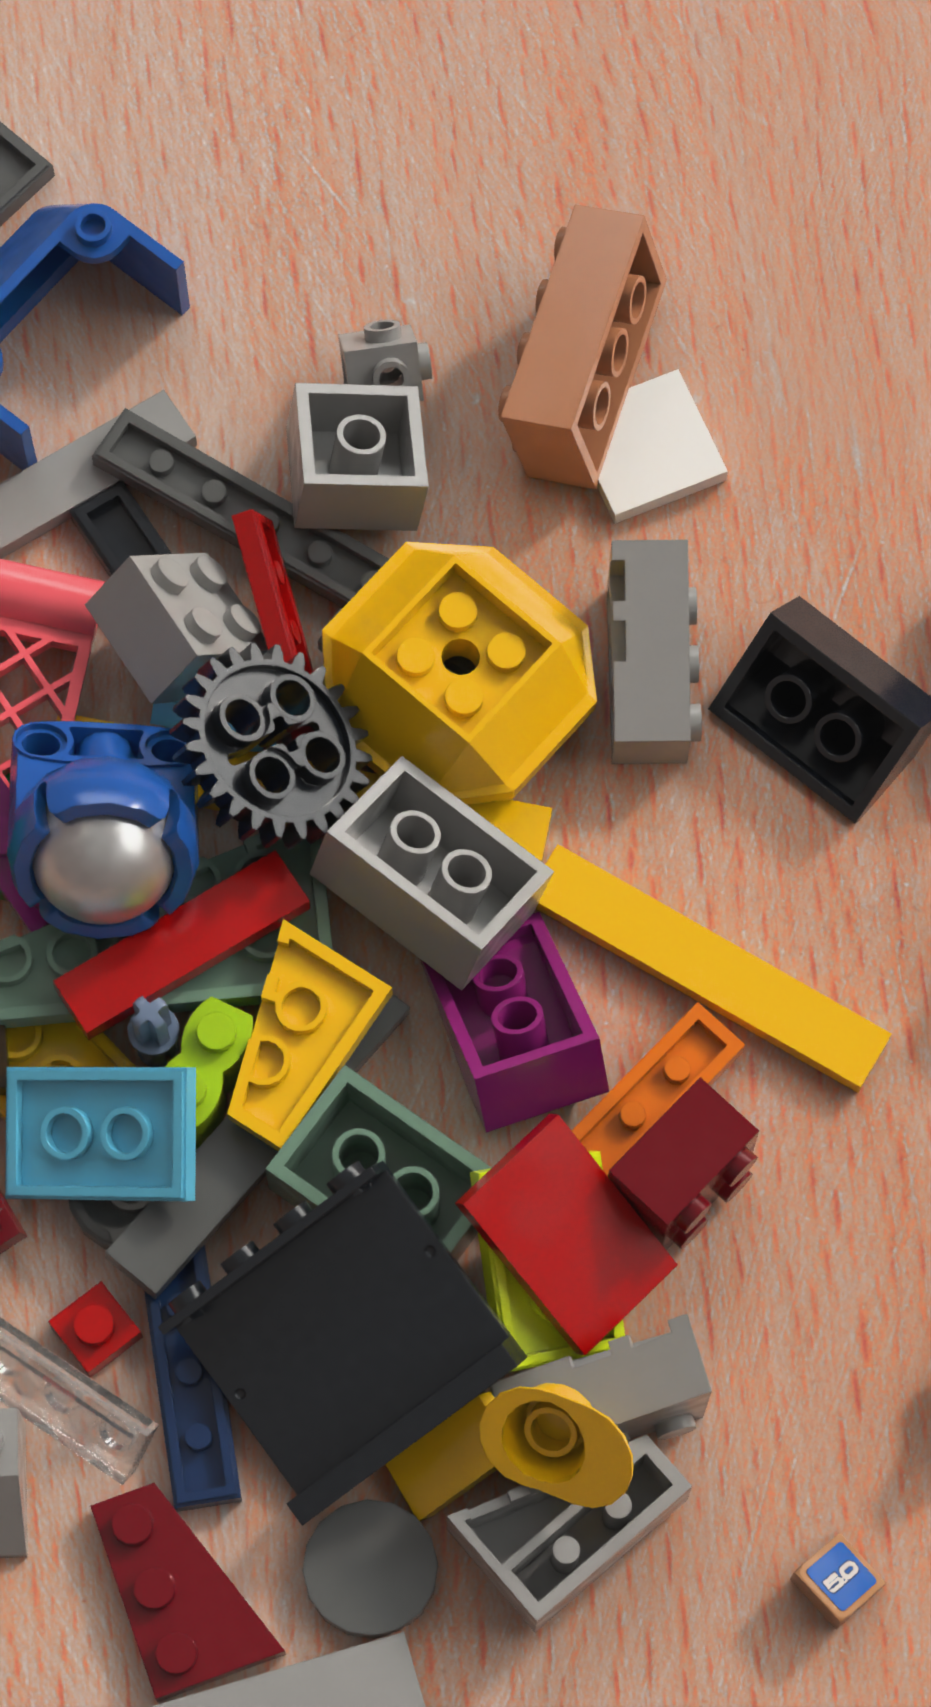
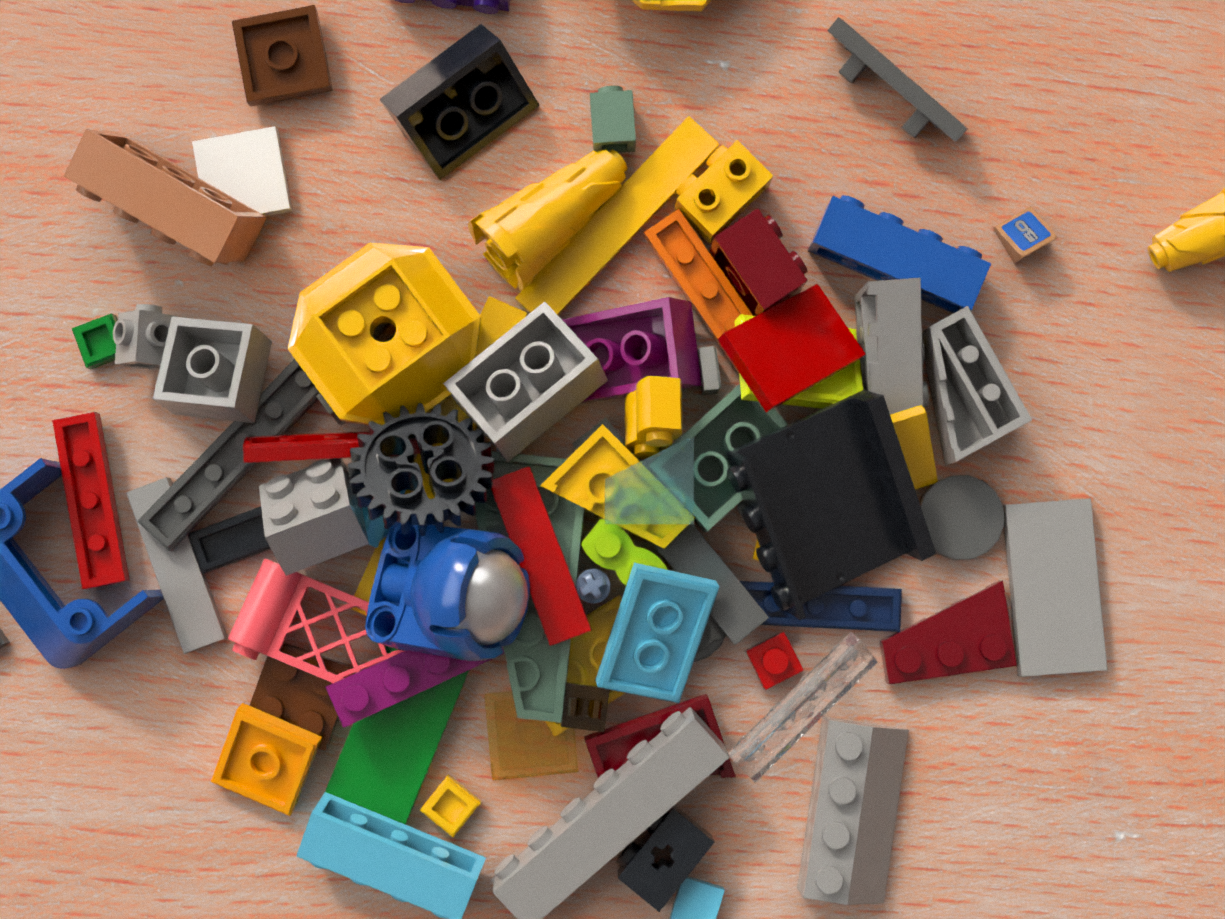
camera: 80 degrees left, 15 degrees up
(143, 348) = (91, 500): none -> red plate
(310, 1076) = (654, 489): none -> clear light blue wing
(366, 304) = (96, 341): none -> green tile
(420, 1057) = (653, 415): none -> yellow brick
(499, 1138) = (709, 370): none -> light grey tile
(557, 1444) = (933, 380): yellow piece -> none
(651, 652) = (398, 205): light grey wedge -> none
(681, 855) = (544, 216): none -> yellow cone
(754, 1386) = (889, 251): none -> blue brick
(791, 1103) = (722, 190): none -> yellow brick
(831, 459) = (282, 55): none -> reddish brown plate
(854, 924) = (613, 119): none -> sand green brick

